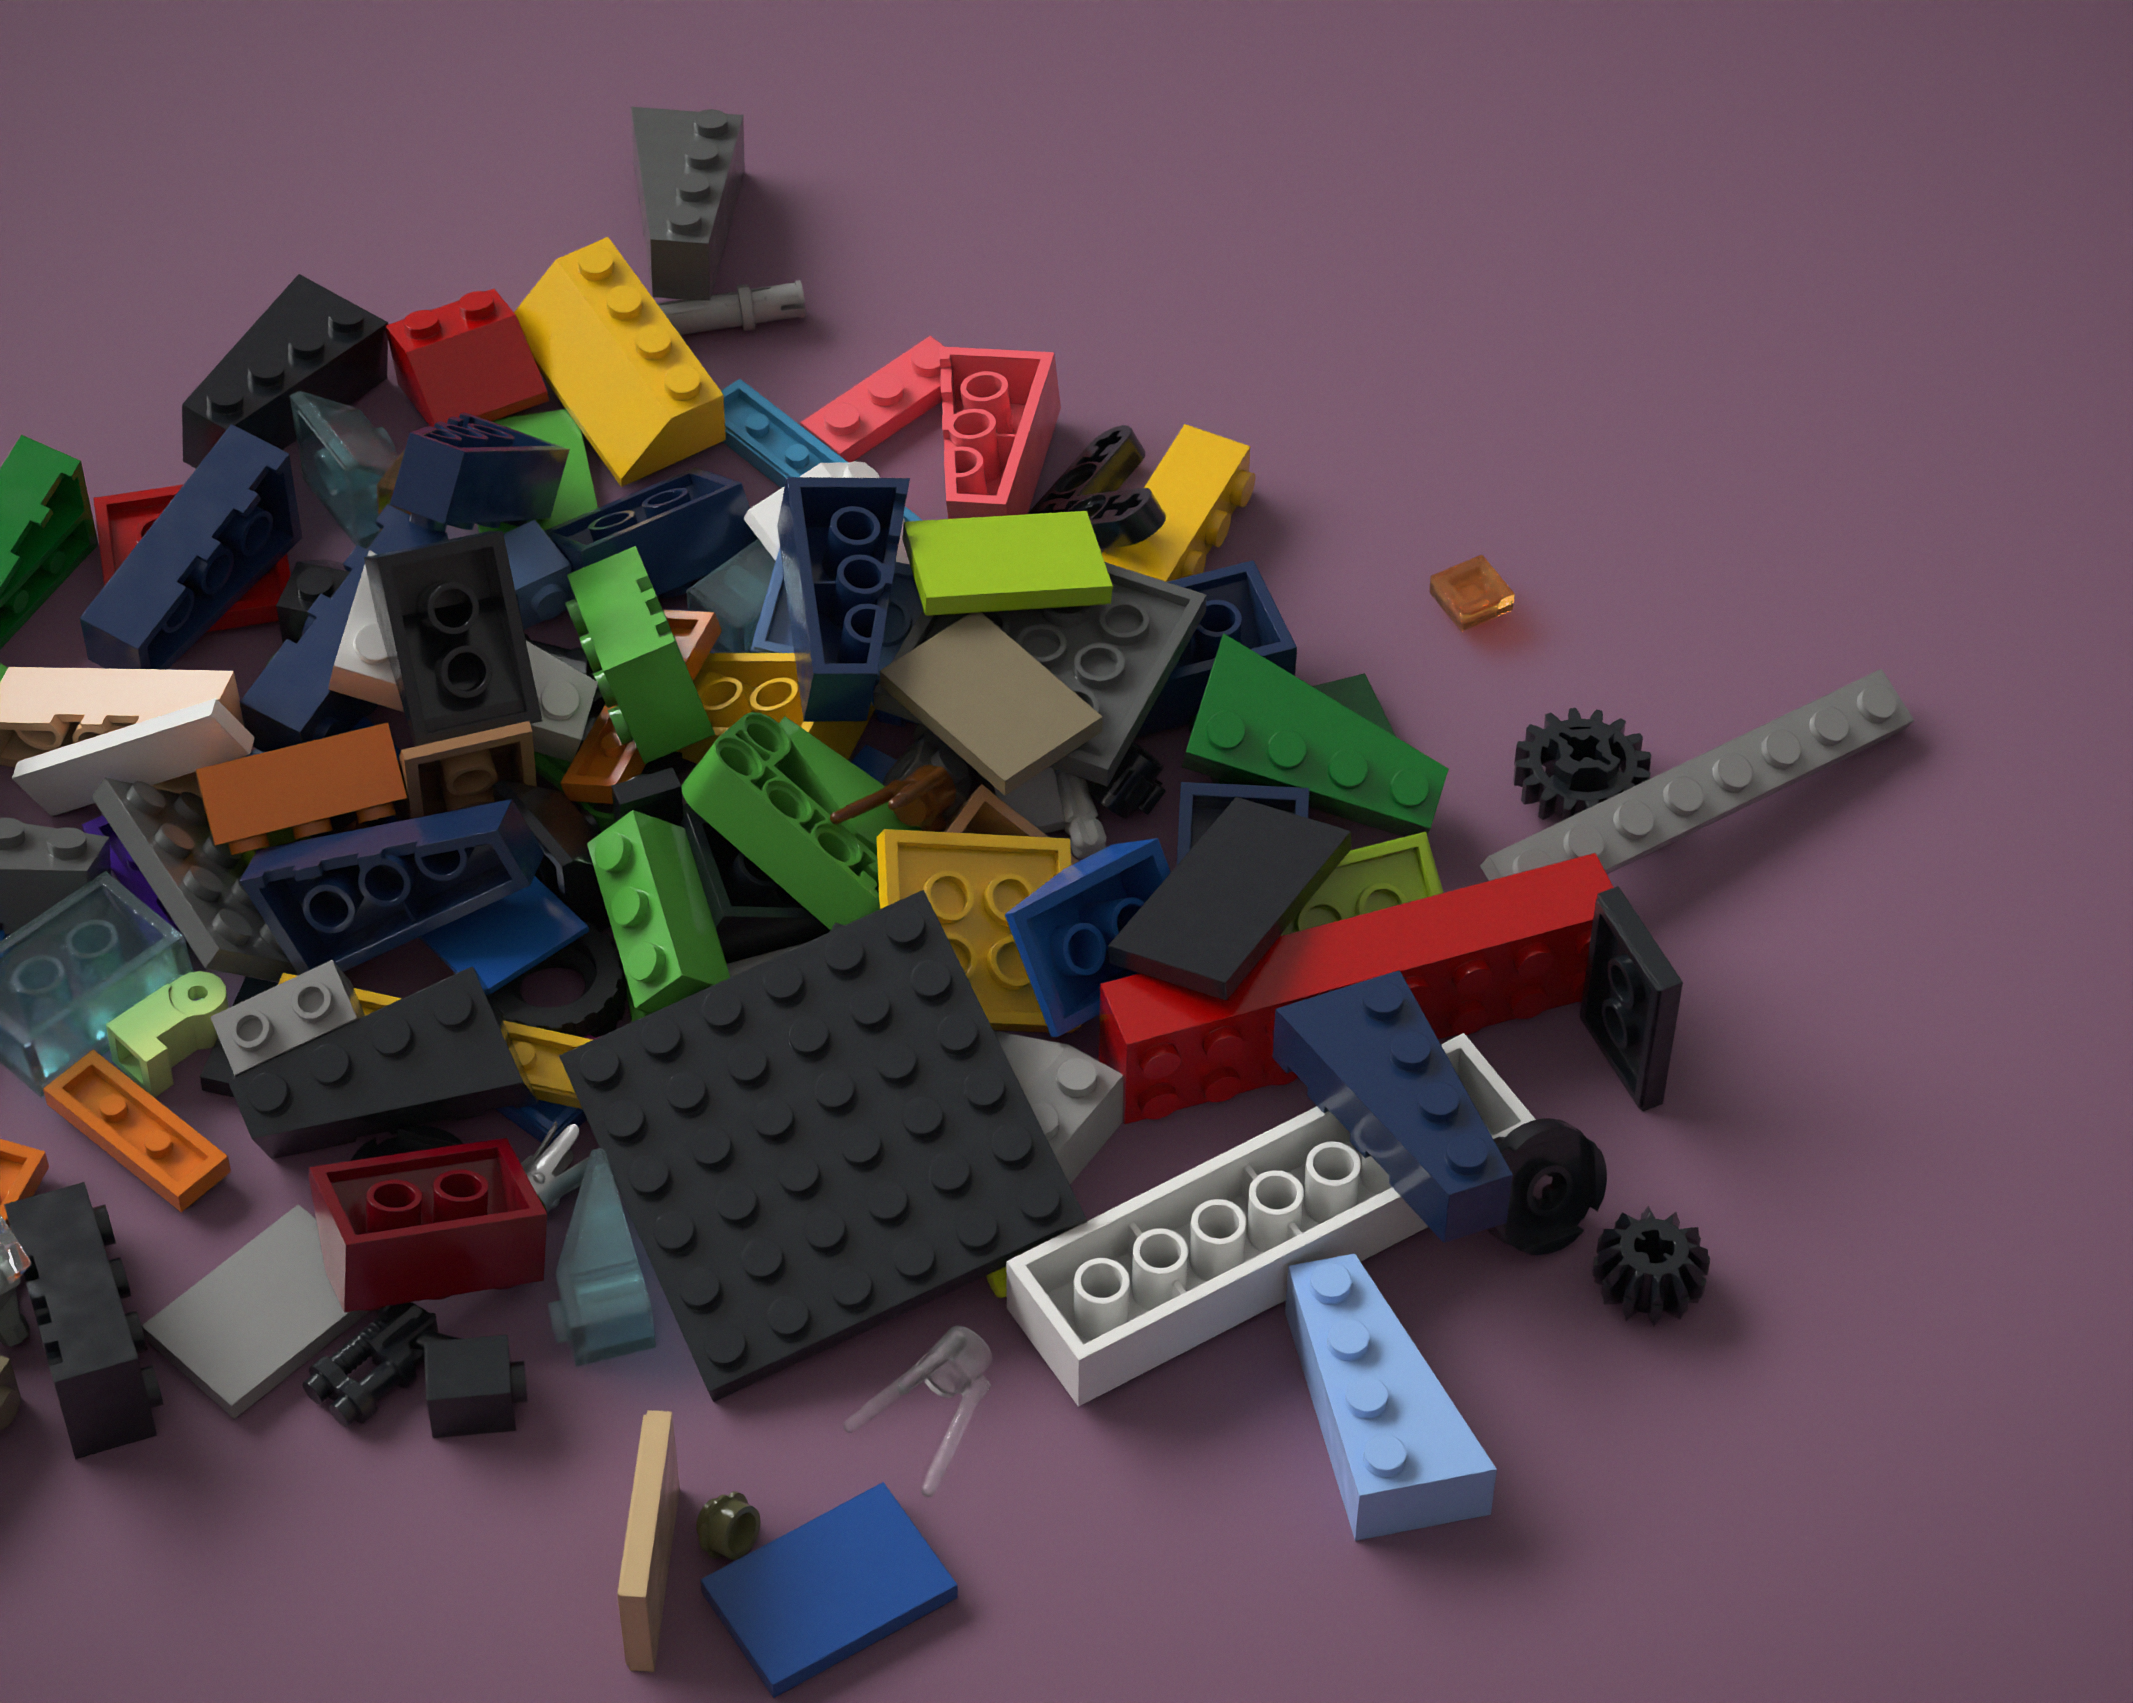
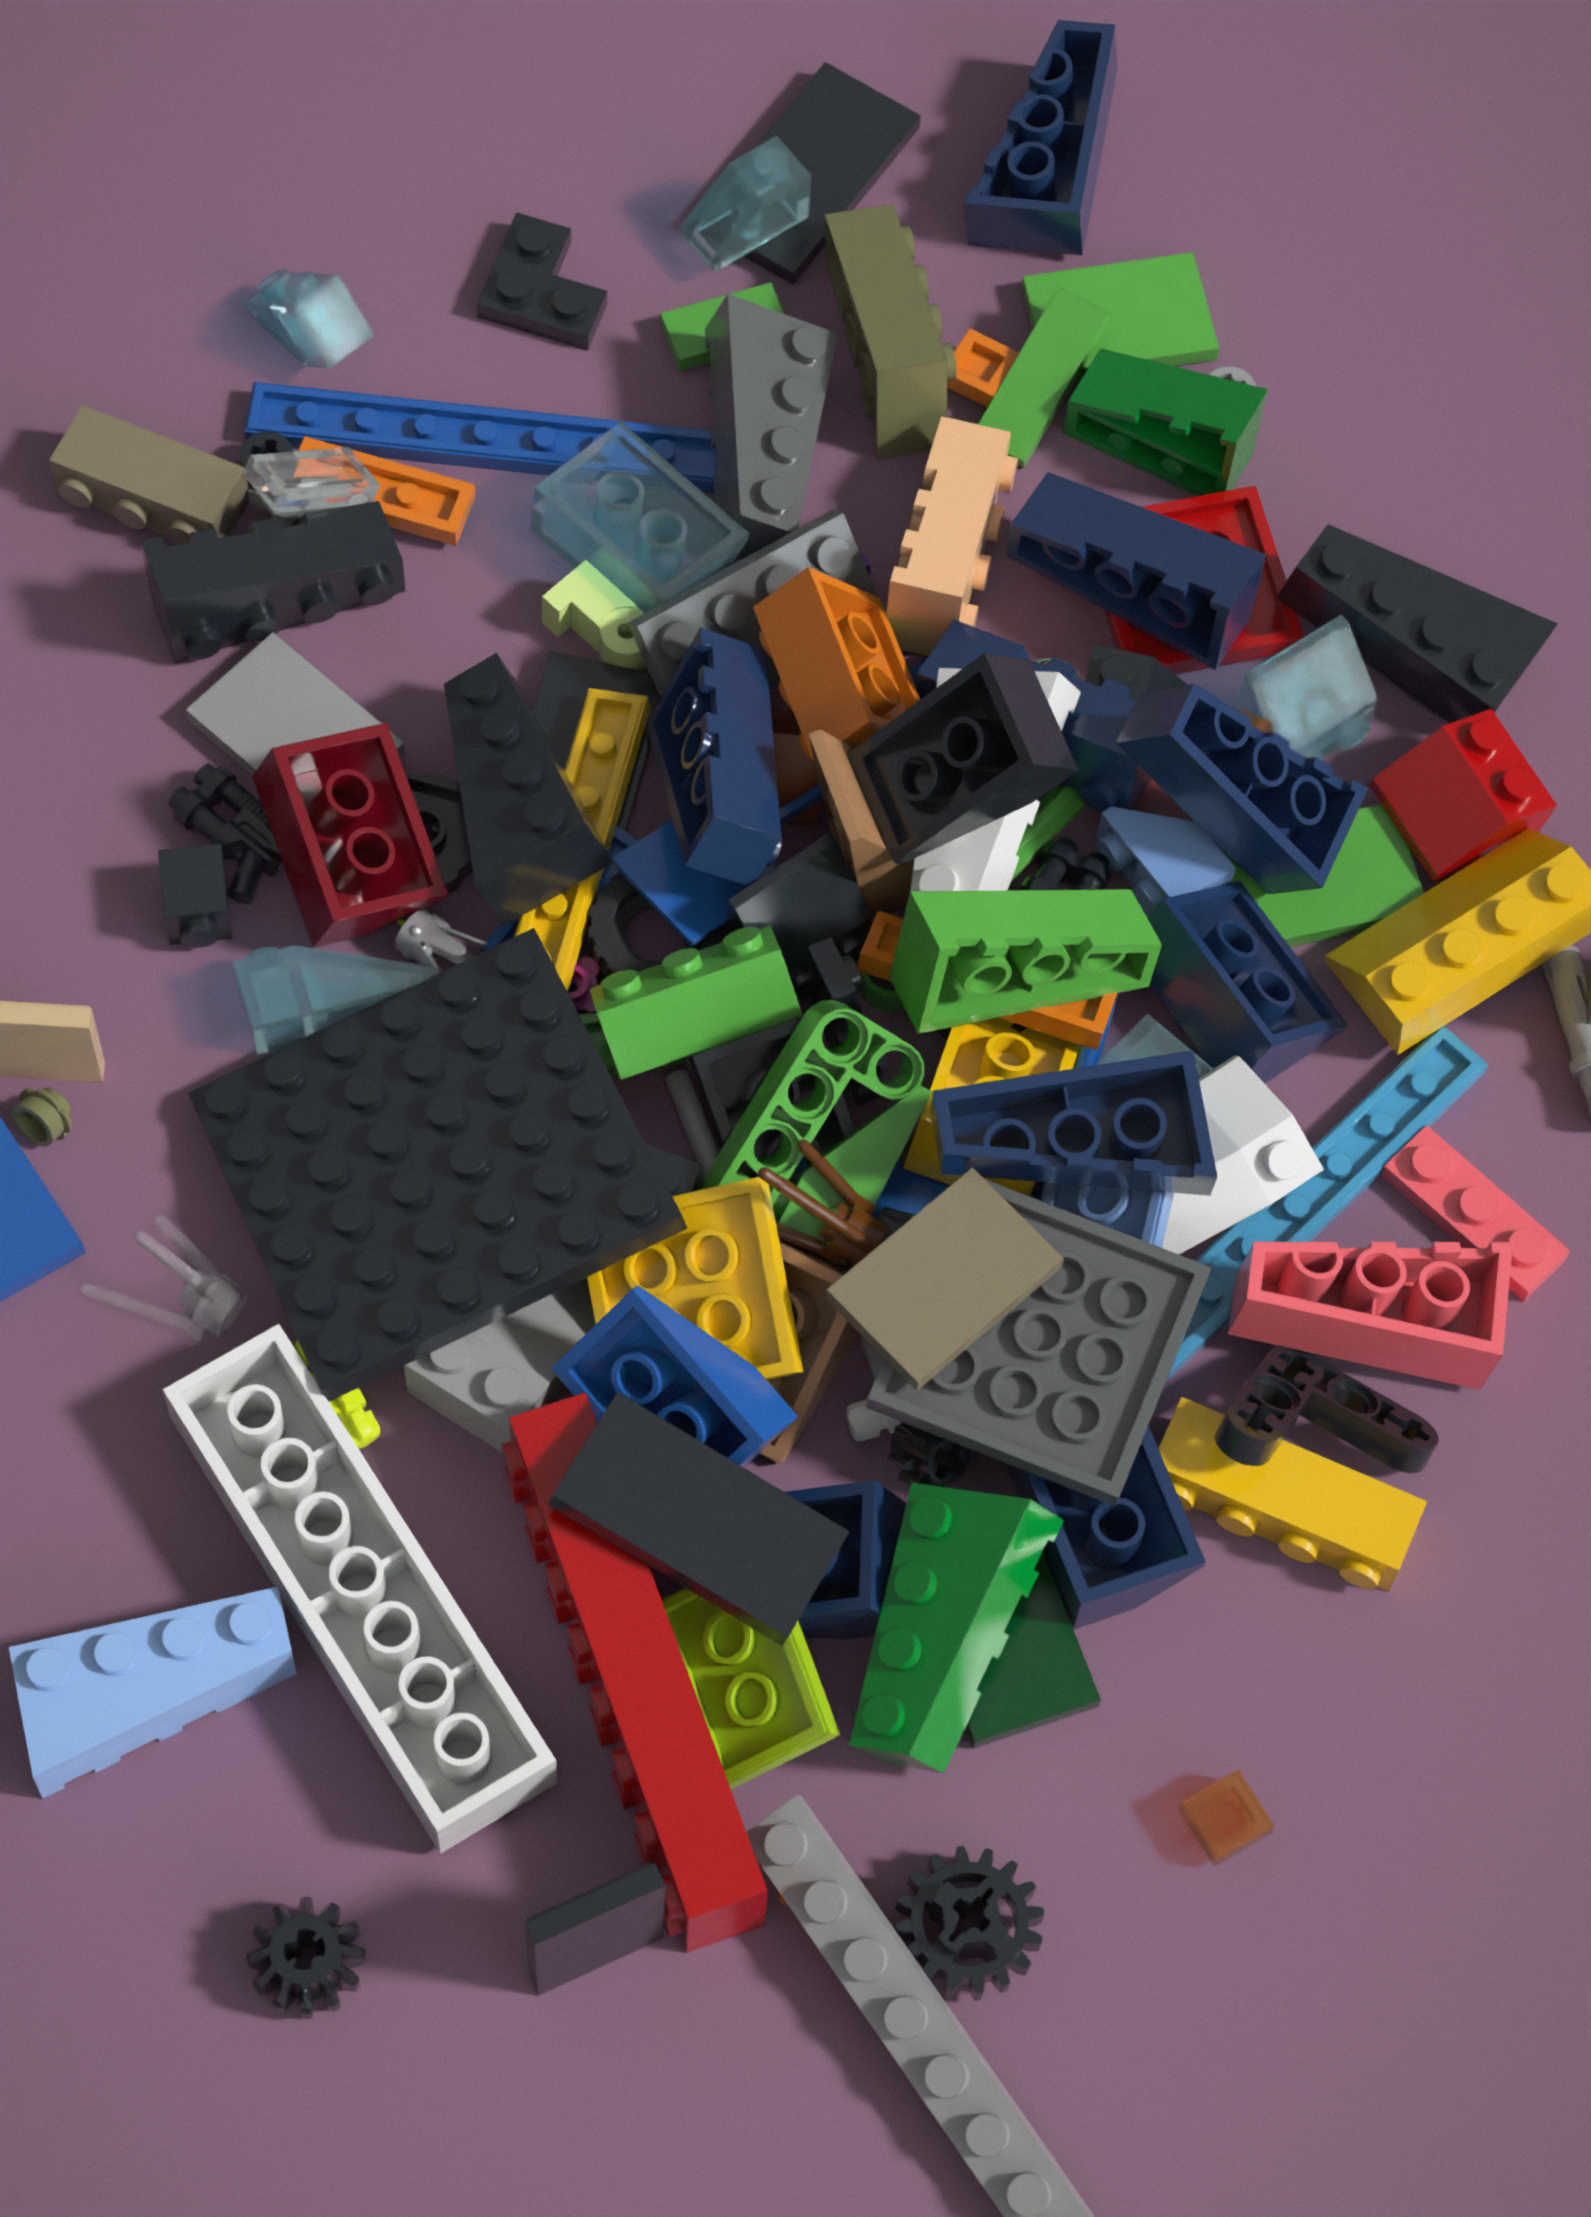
camera: 85 degrees right, 15 degrees up
(137, 1130) = (488, 605): orange plate -> none
(140, 752) = (881, 539): white tile -> none
(286, 1017) = (561, 702): light grey brick -> none
(1006, 563) = (1129, 1287): lime tile -> none
(1397, 1094) = (435, 1678): dark blue wedge -> none
(1577, 1184) = (386, 1840): black plate -> none

